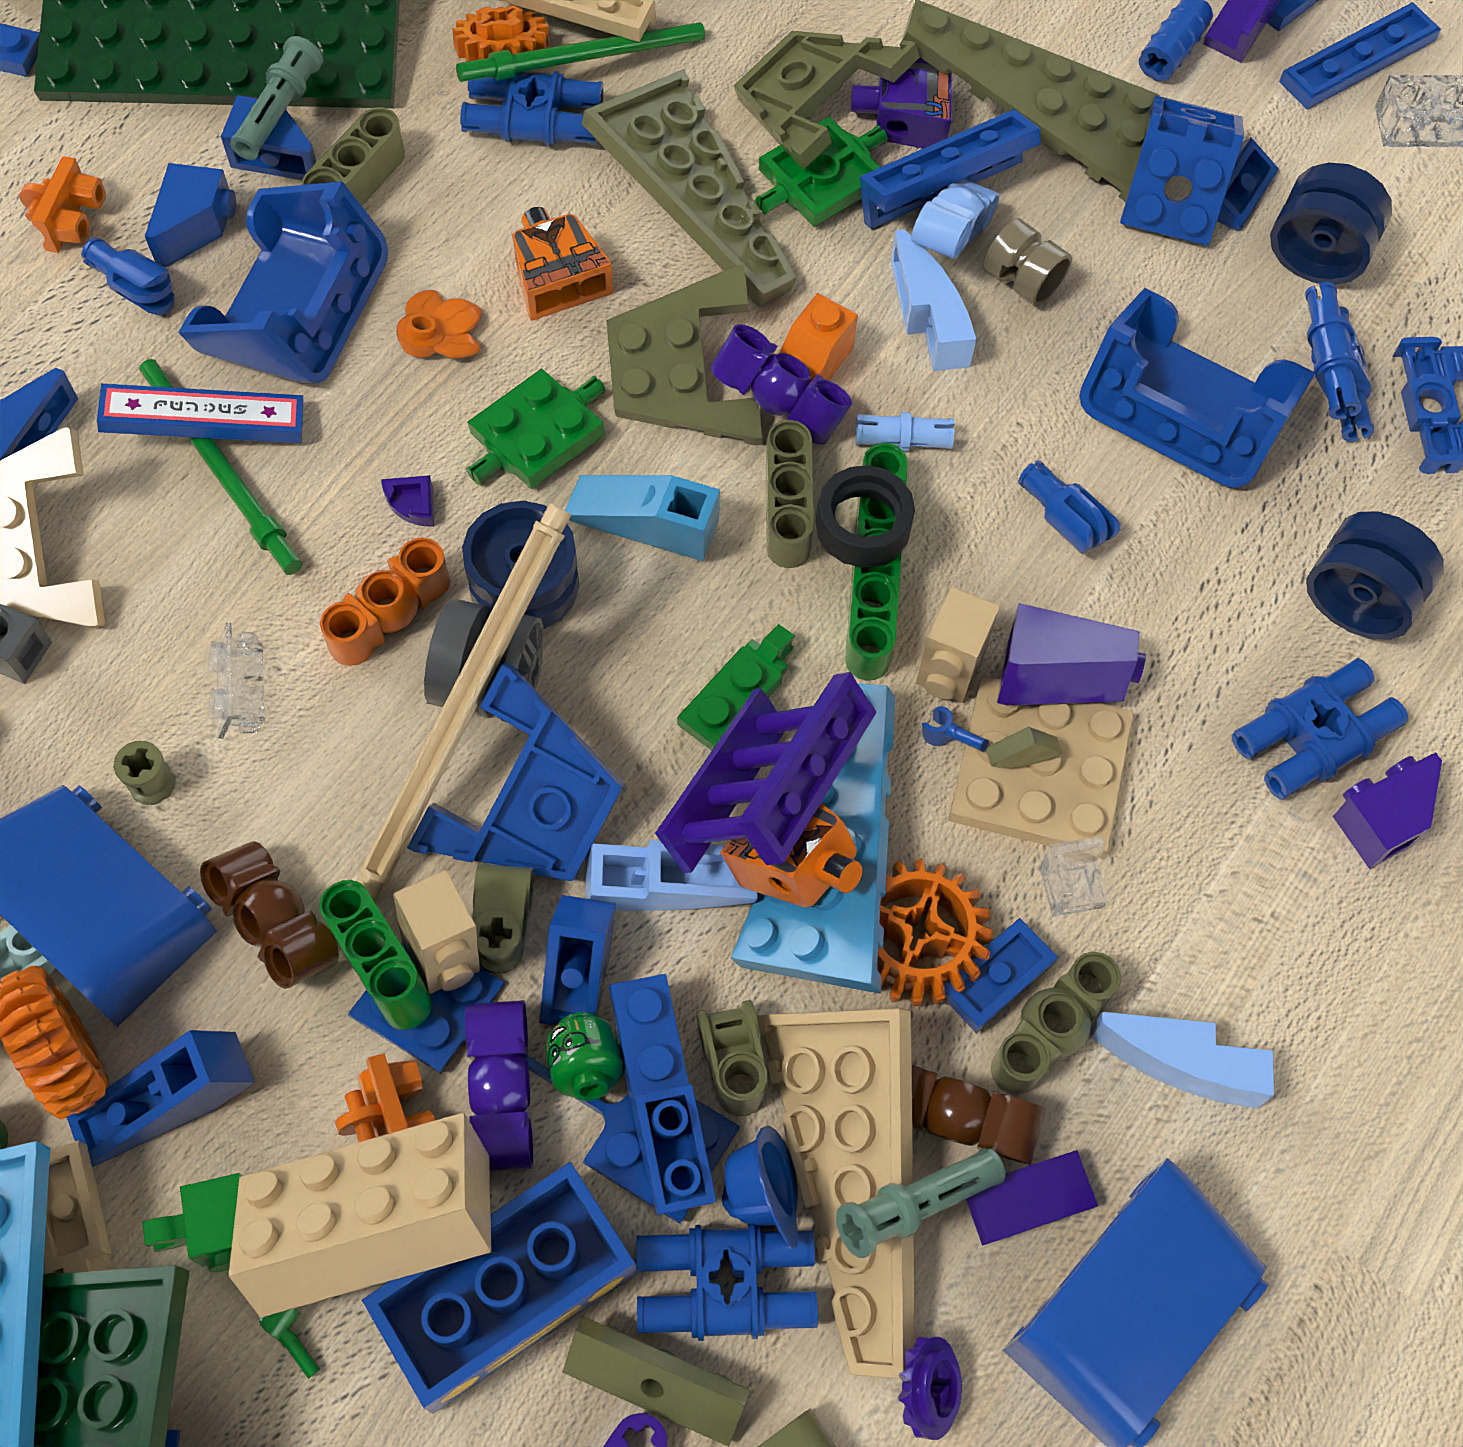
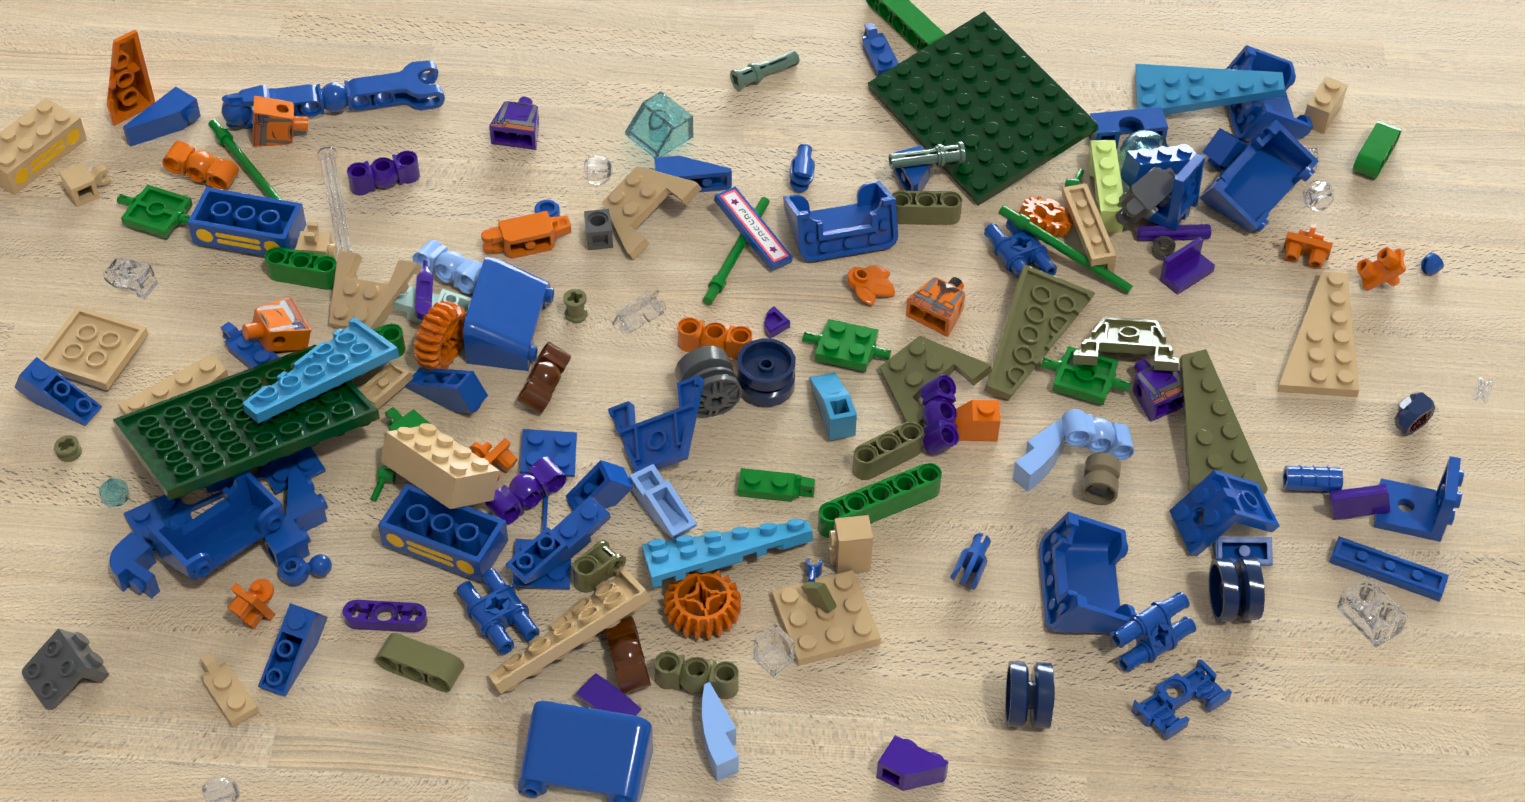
camera: 60 degrees right, 15 degrees down
(56, 204) = (817, 124): orange hips -> none
(188, 212) = (849, 167): blue slope -> none
(361, 933) = (550, 418): green beam -> none
(438, 932) = (571, 427): tan brick -> none
(463, 700) = (675, 375): tan piece -> none
(501, 908) = (604, 447): olive piece -> none
(584, 1056) = (555, 508): green head -> none
(656, 1380) = (441, 606): olive tile -> none
(763, 1185) = (546, 600): blue piece -> none
(789, 794) = (725, 497): dark purple fence -> none
(816, 862) = (699, 524): orange torso -> none
(871, 483) = (892, 457): black tyre -> none
(901, 1208) = (601, 665): sand green pin -> none
(905, 431) = (963, 480): light blue pin -> none
(925, 173) = (1143, 424): blue fence -> none
(930, 1388) = (497, 712): dark purple gear -> none
(1013, 965) = (708, 646): blue plate -> none
(1067, 659) = (880, 591): dark purple slope -> none
(1318, 749) = (932, 729): blue pin -> none

